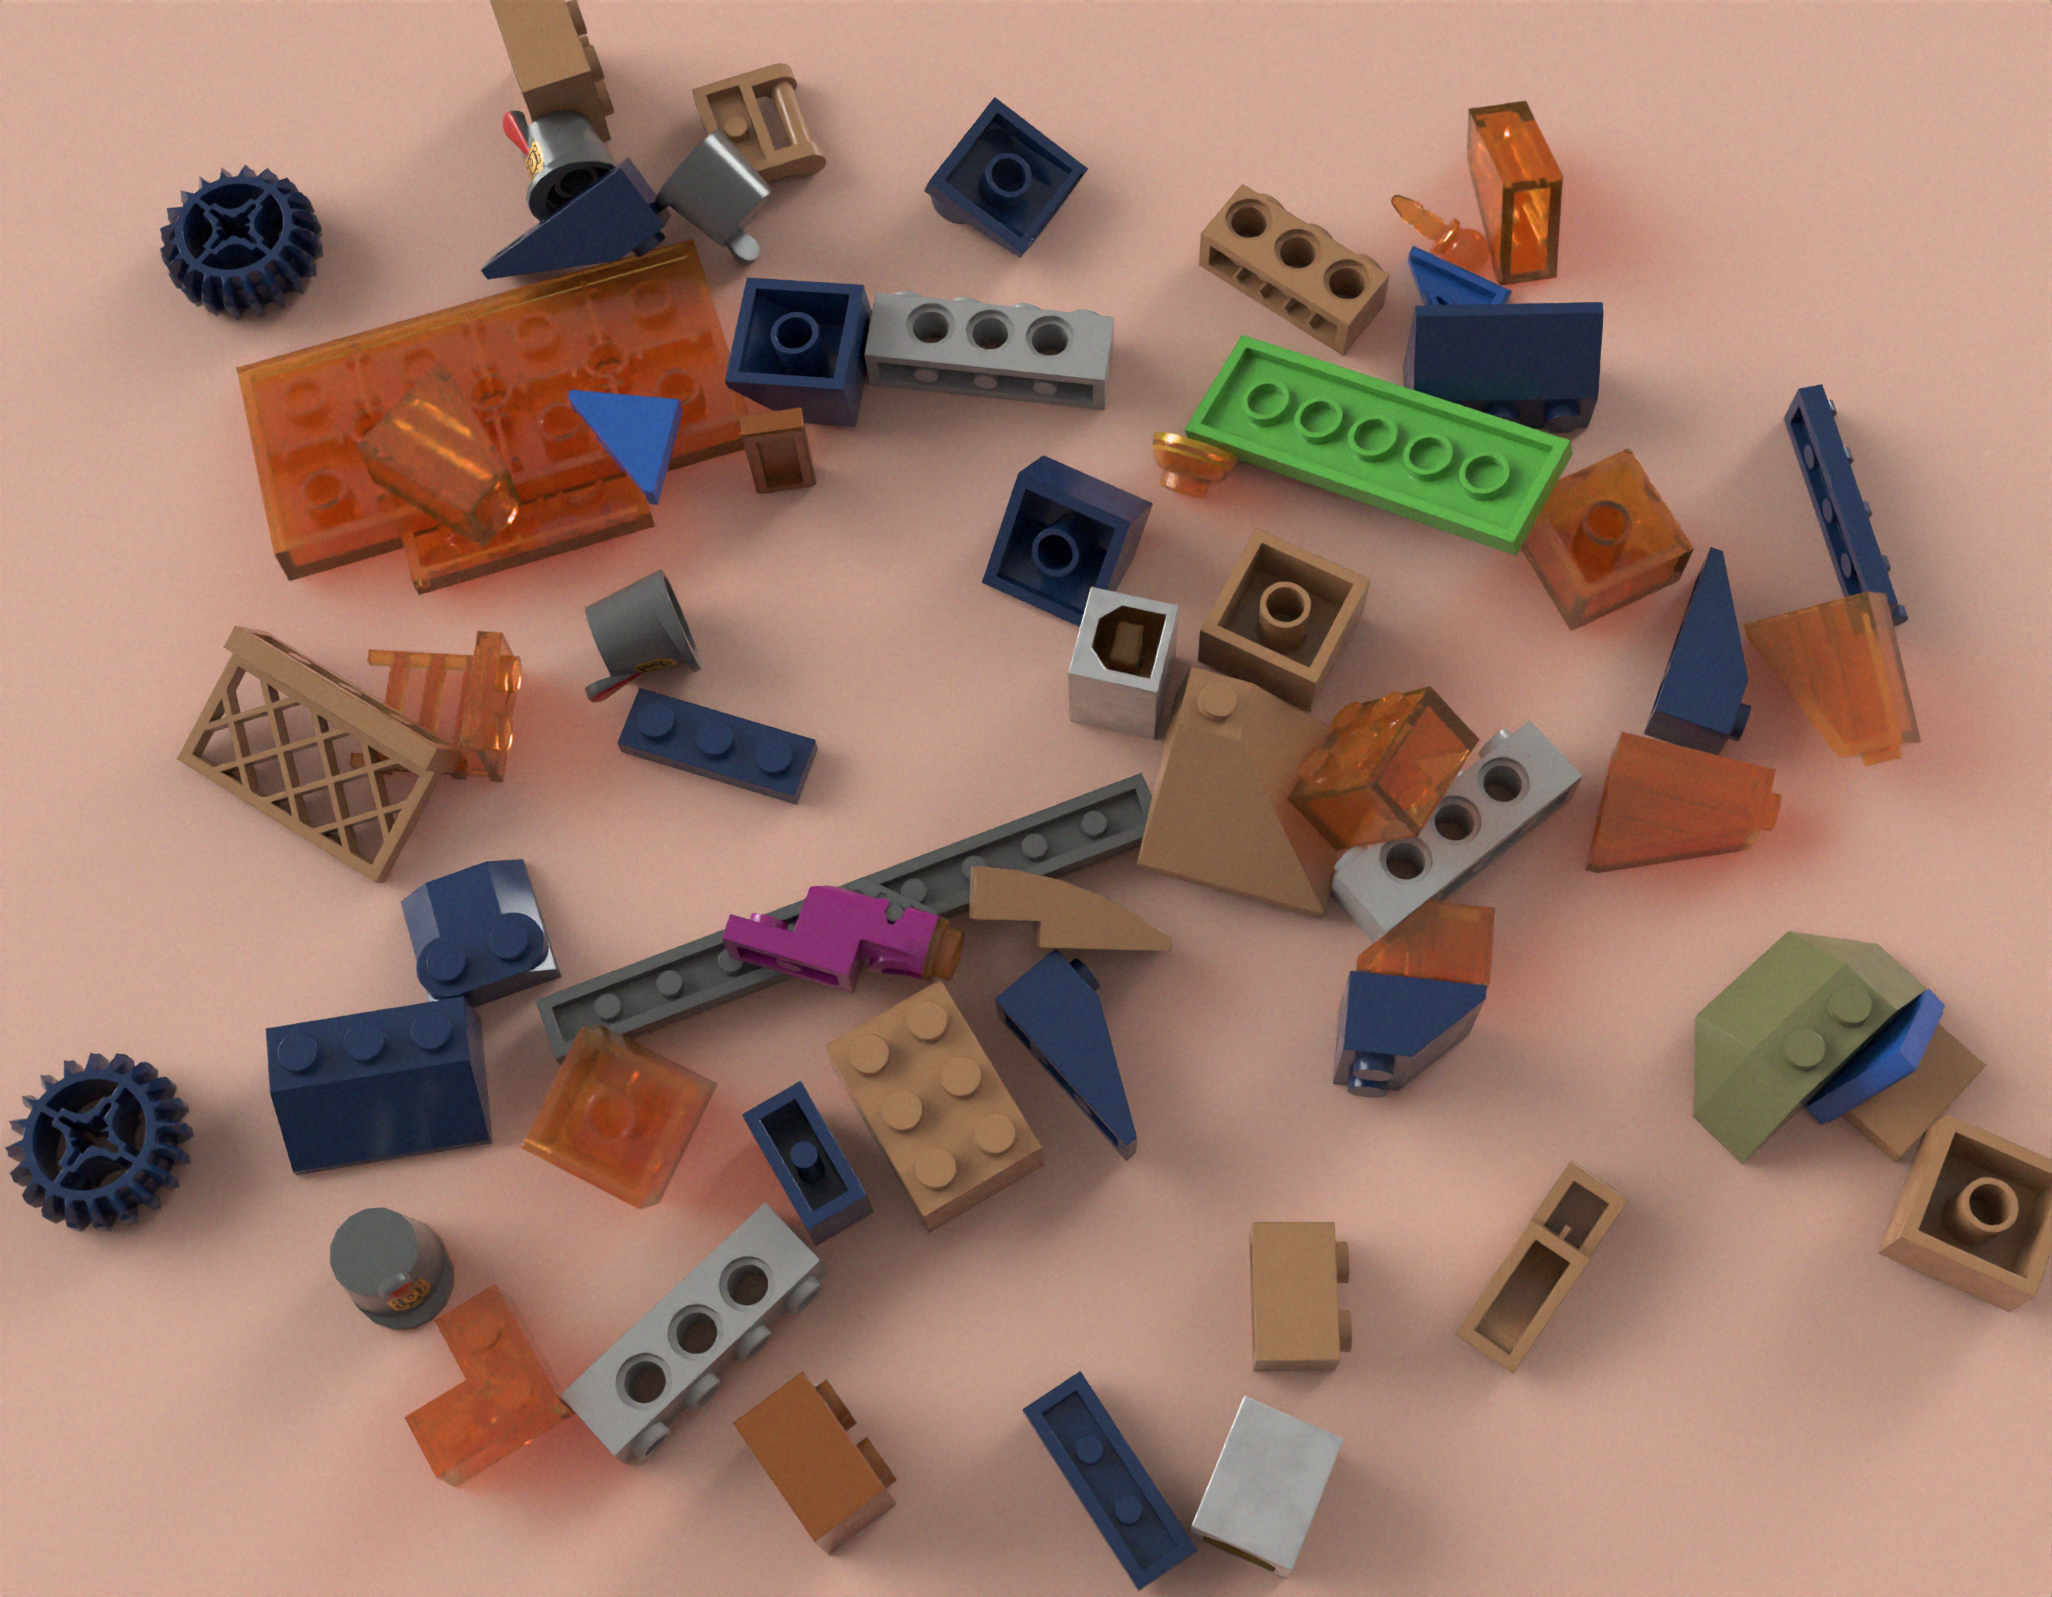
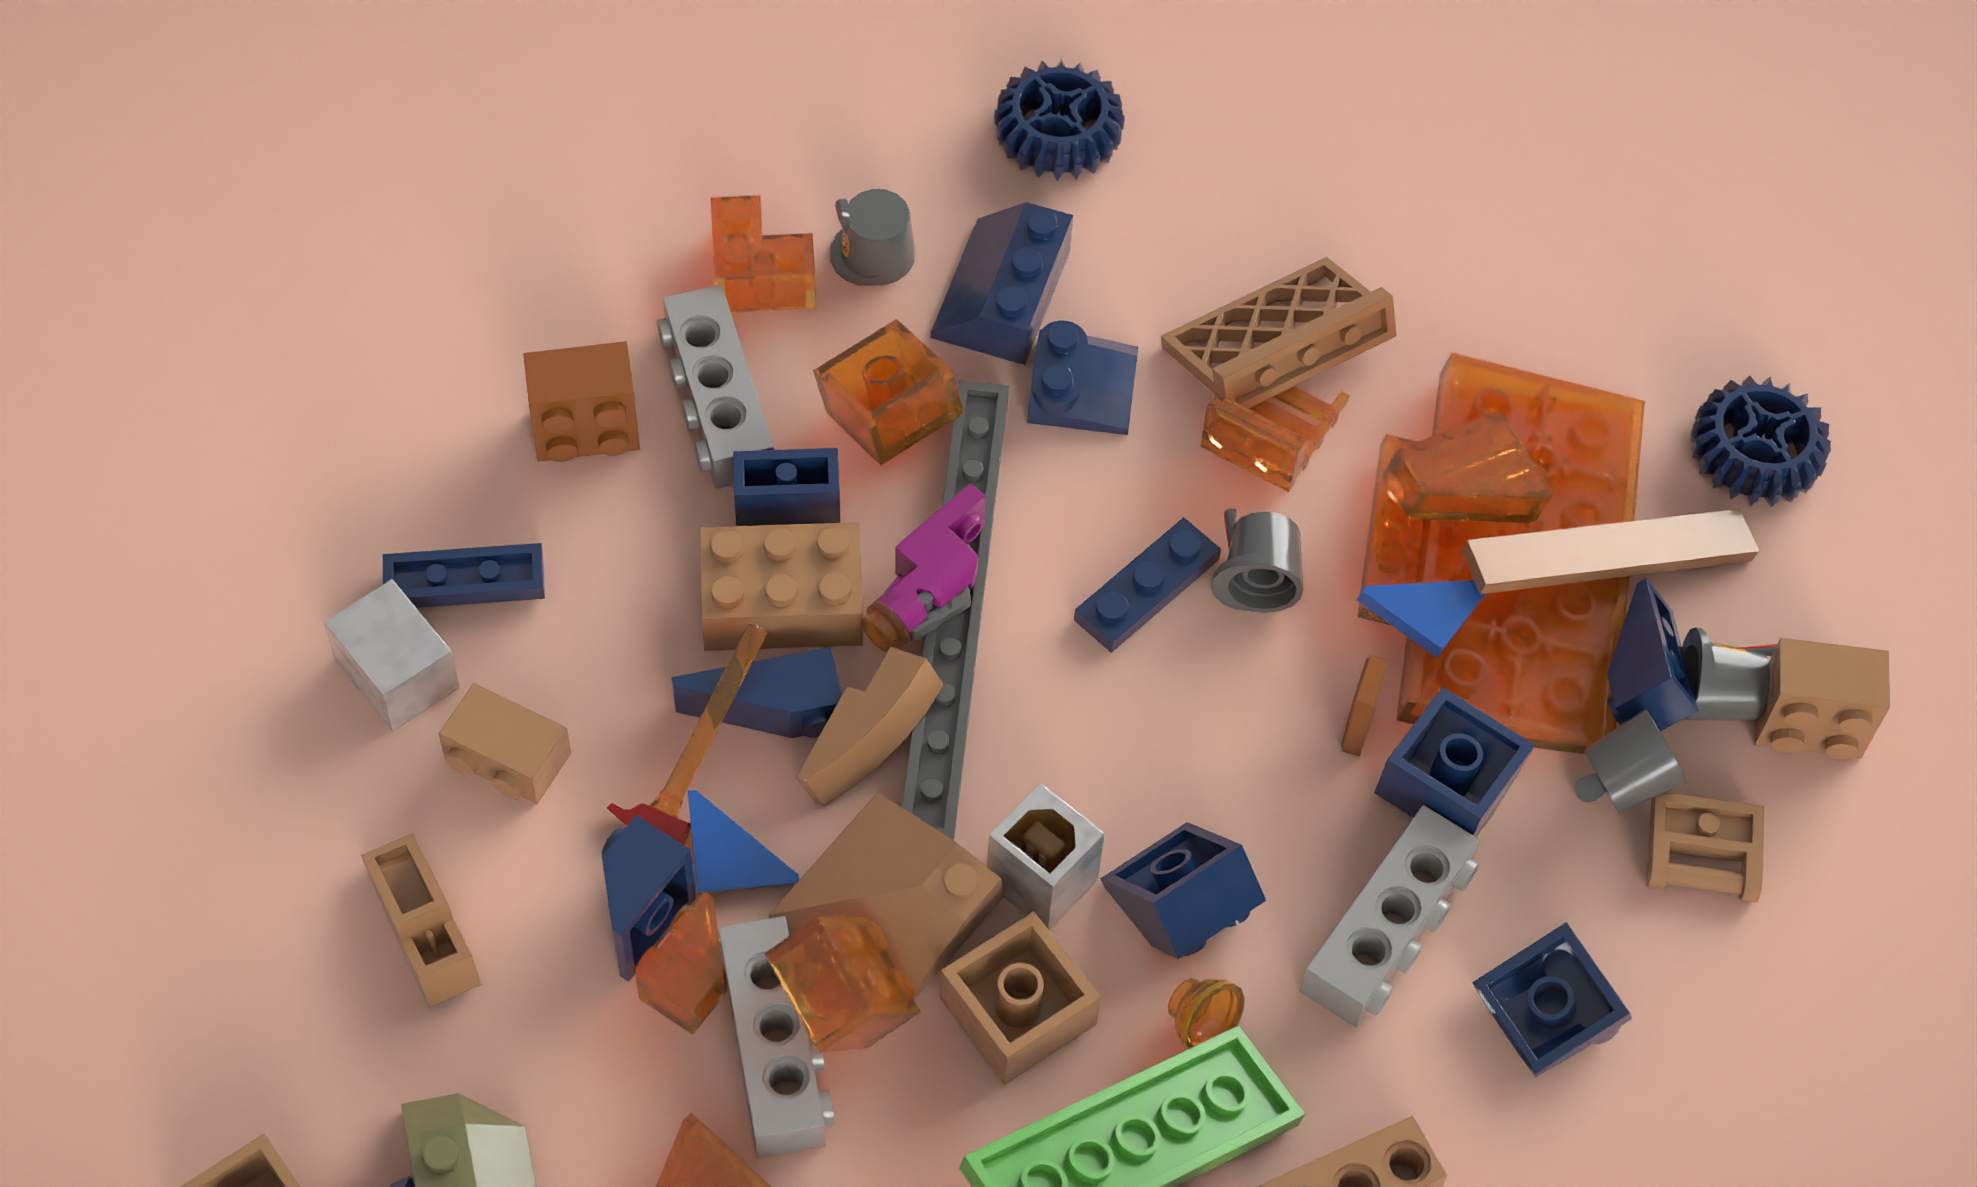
camera: 110 degrees right, 10 degrees down
(466, 314) = (1609, 551): none -> tile
(1282, 1082) = (665, 808): none -> clear orange piece
(1283, 985) = (728, 855): none -> blue tile

